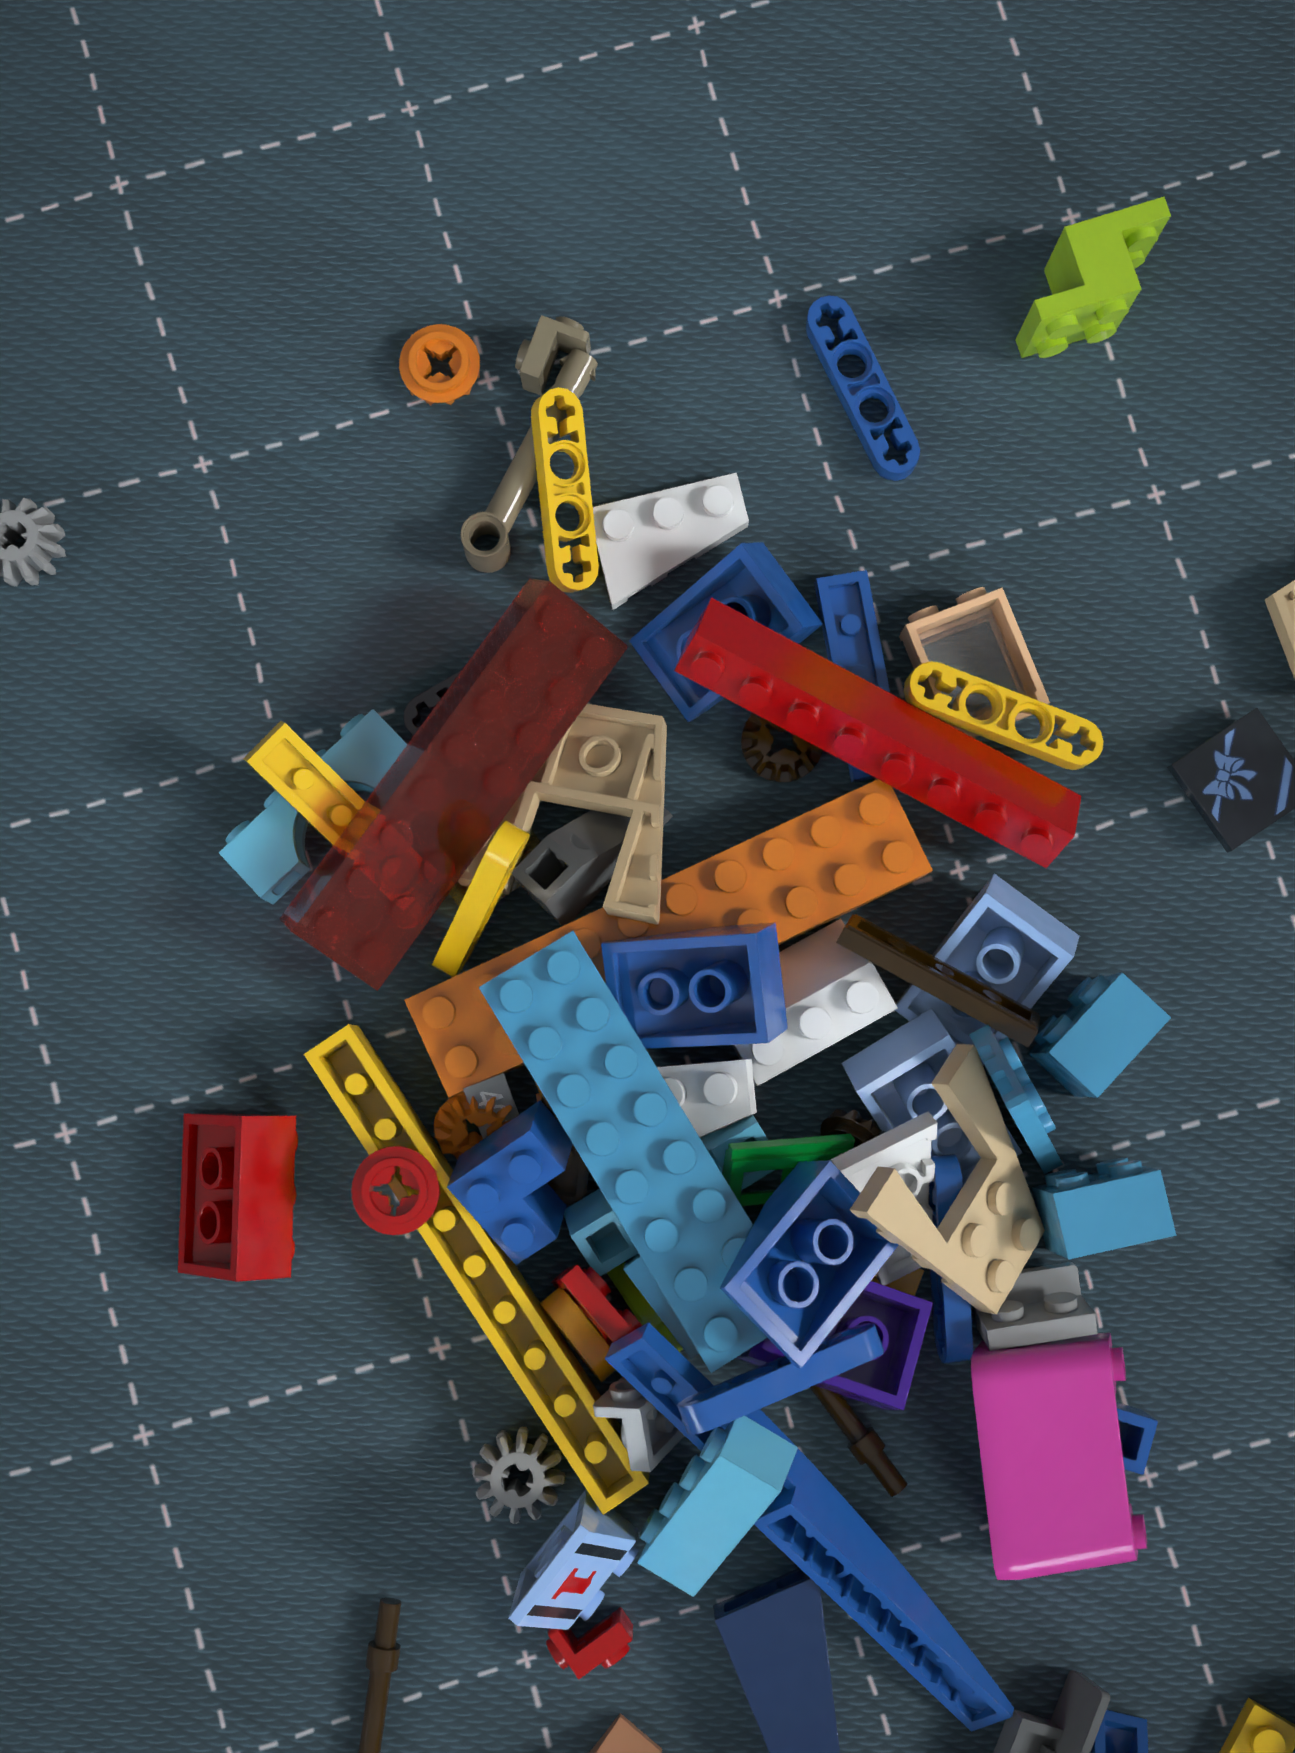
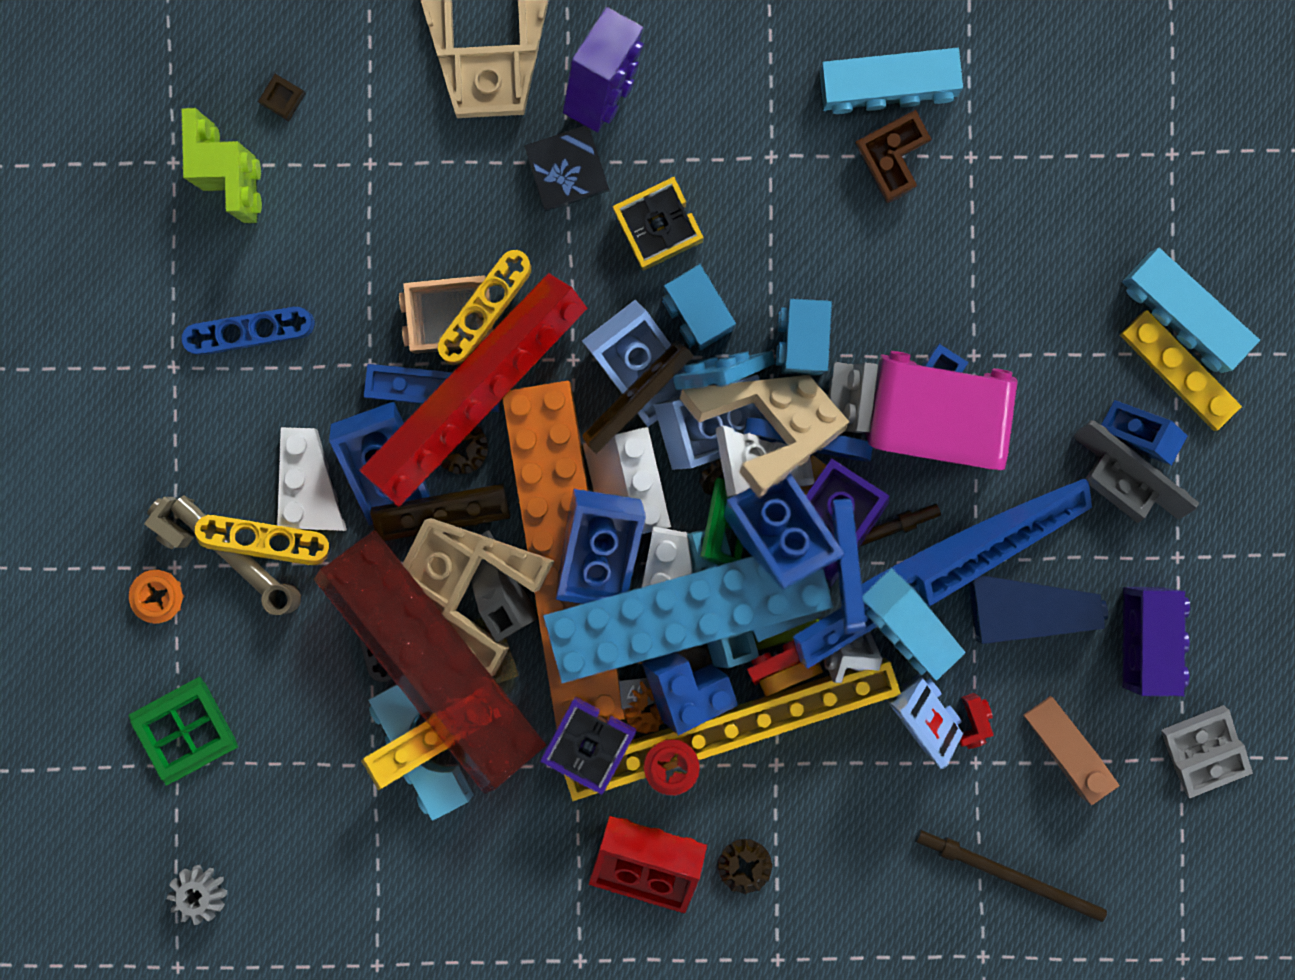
camera: 75 degrees left, 5 degrees up
(287, 426) = (168, 705): none -> green piece
(298, 1345) = (749, 851): none -> dark brown gear
(372, 1049) = (581, 757): none -> piece
(481, 898) = (507, 666): yellow beam -> none
(512, 1492) = (874, 744): light grey gear -> none
(690, 757) = (455, 508): none -> dark brown tile
(1202, 938) = (658, 224): none -> piece
(1214, 341) = (281, 97): none -> dark brown tile

